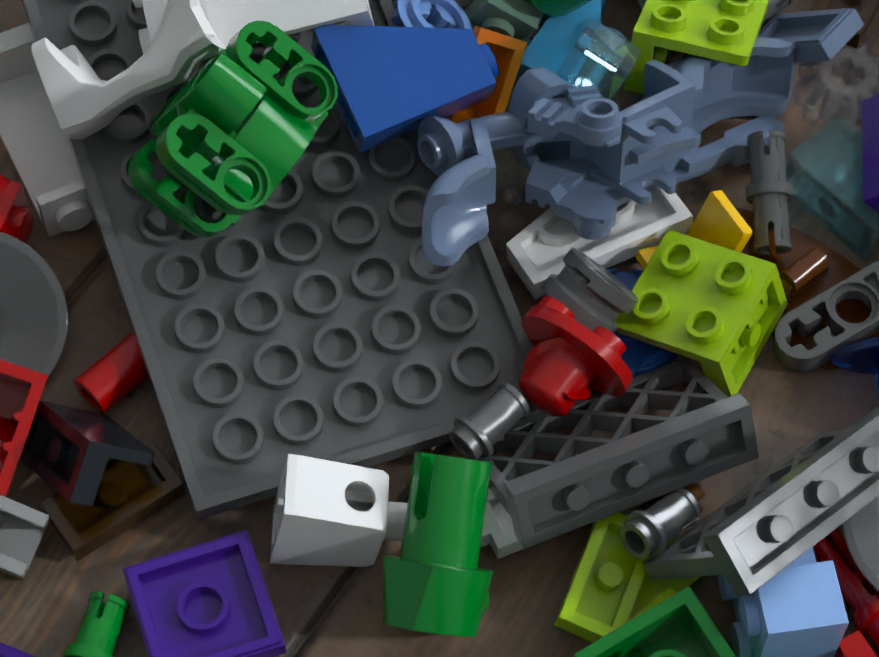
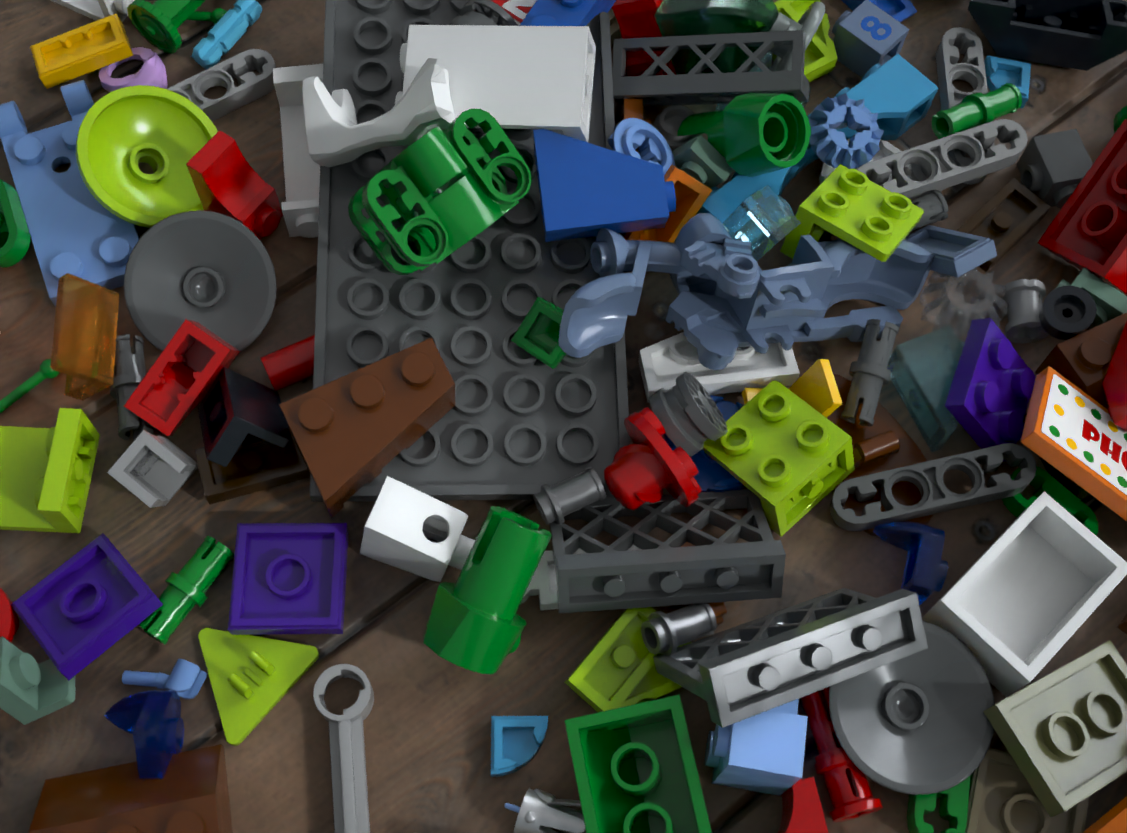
camera: 15 degrees right, 5 degrees up
(234, 404) = (368, 418): none -> reddish brown wedge
(397, 253) = (540, 333): none -> green slope

